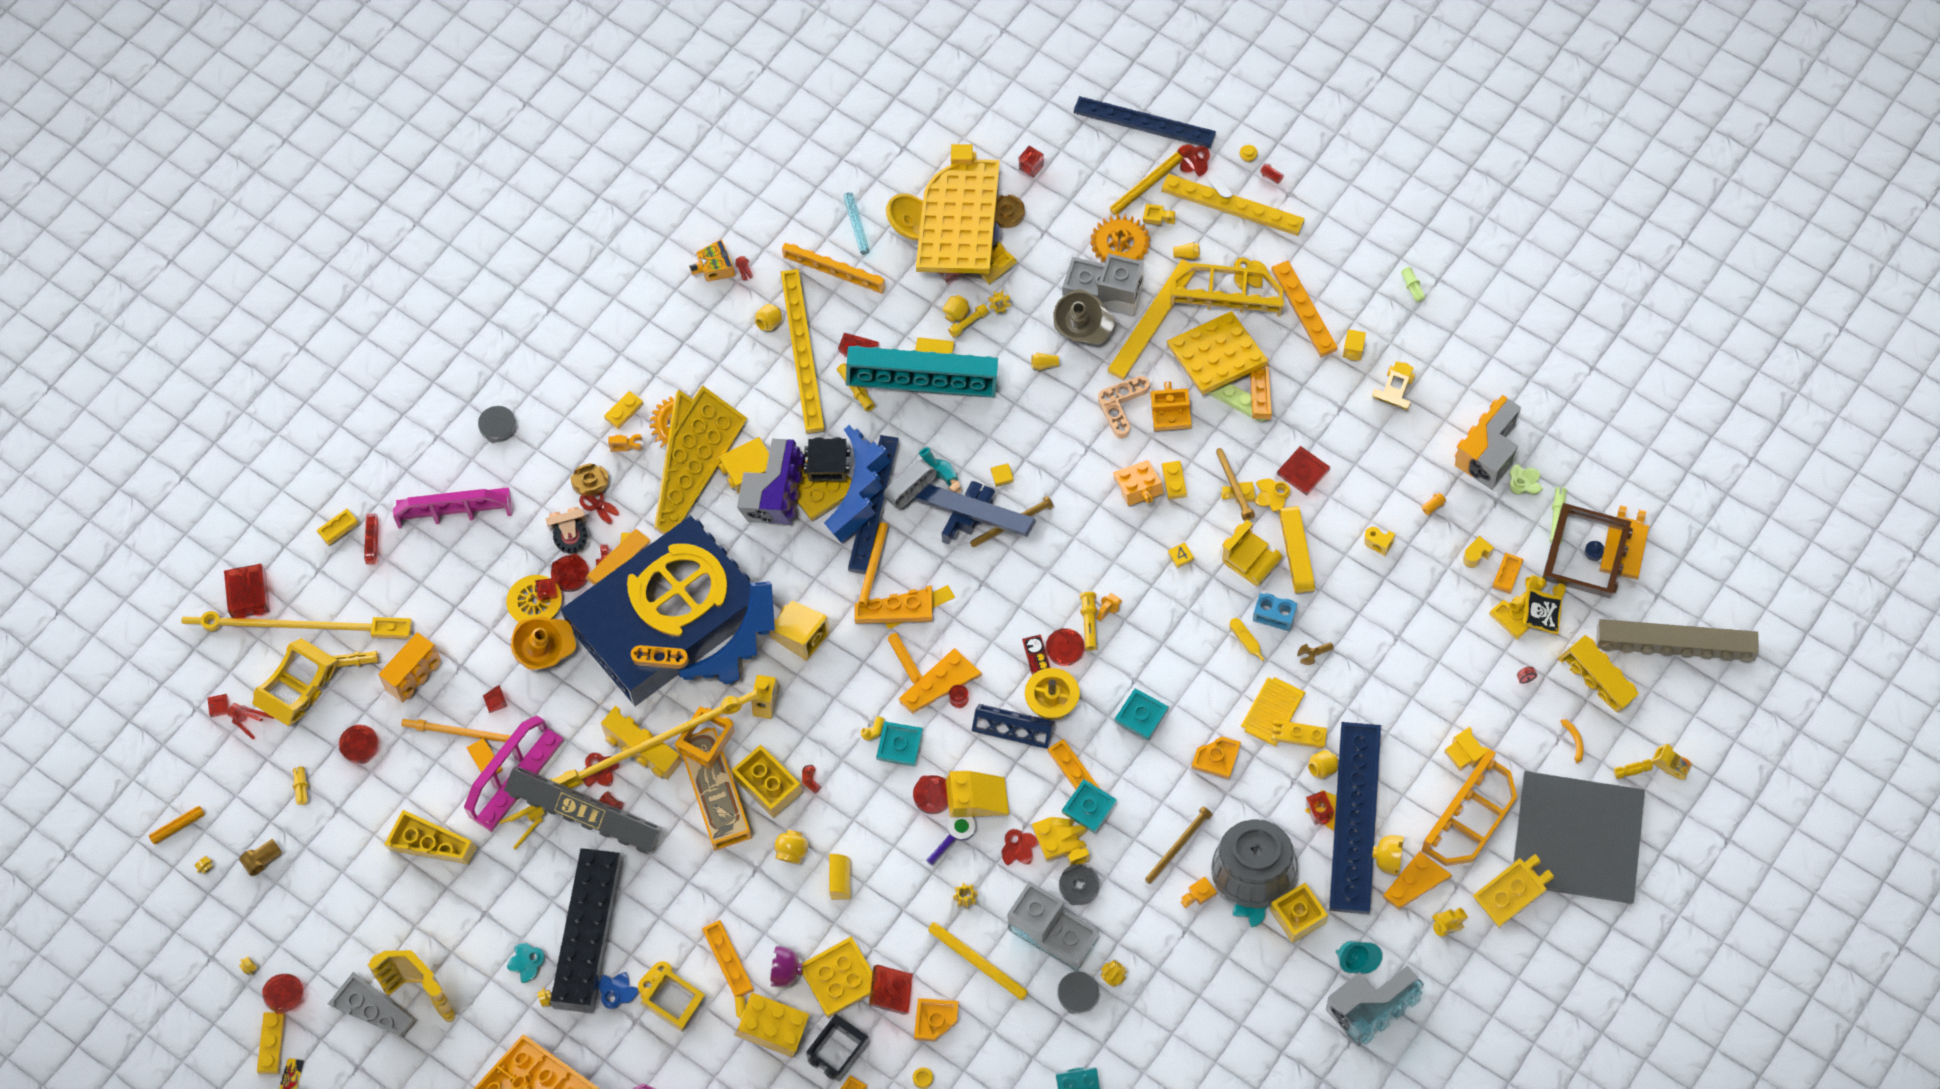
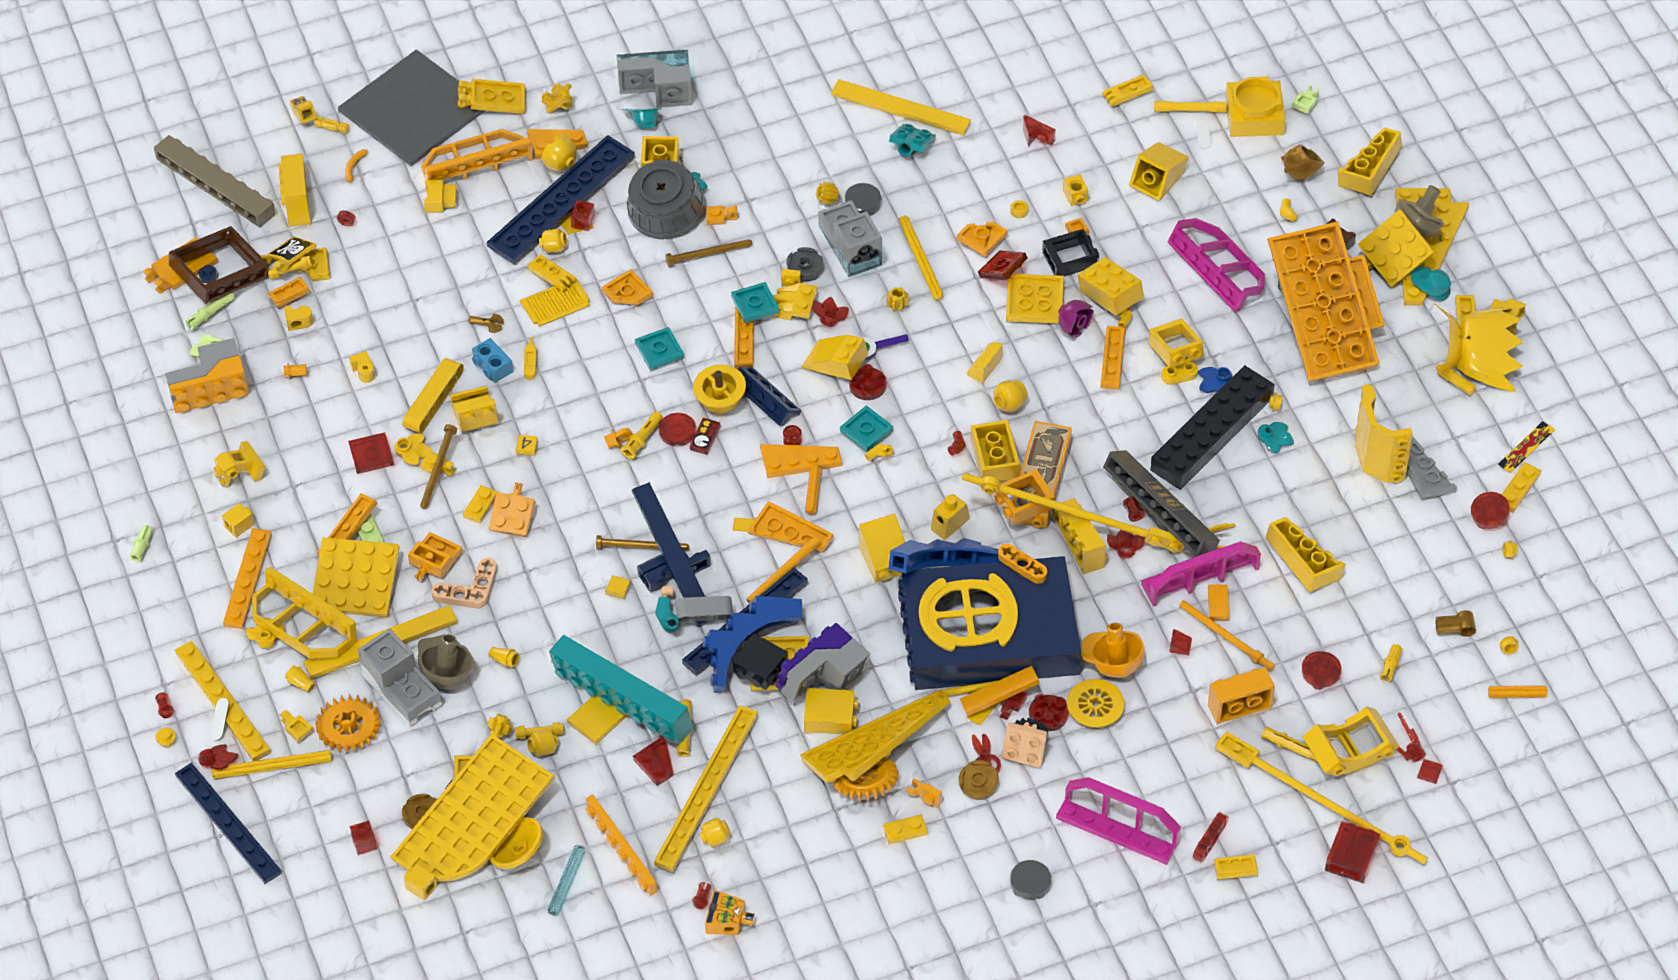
camera: 150 degrees left, 10 degrees down
(546, 589) = (1079, 700): clear red plate -> none

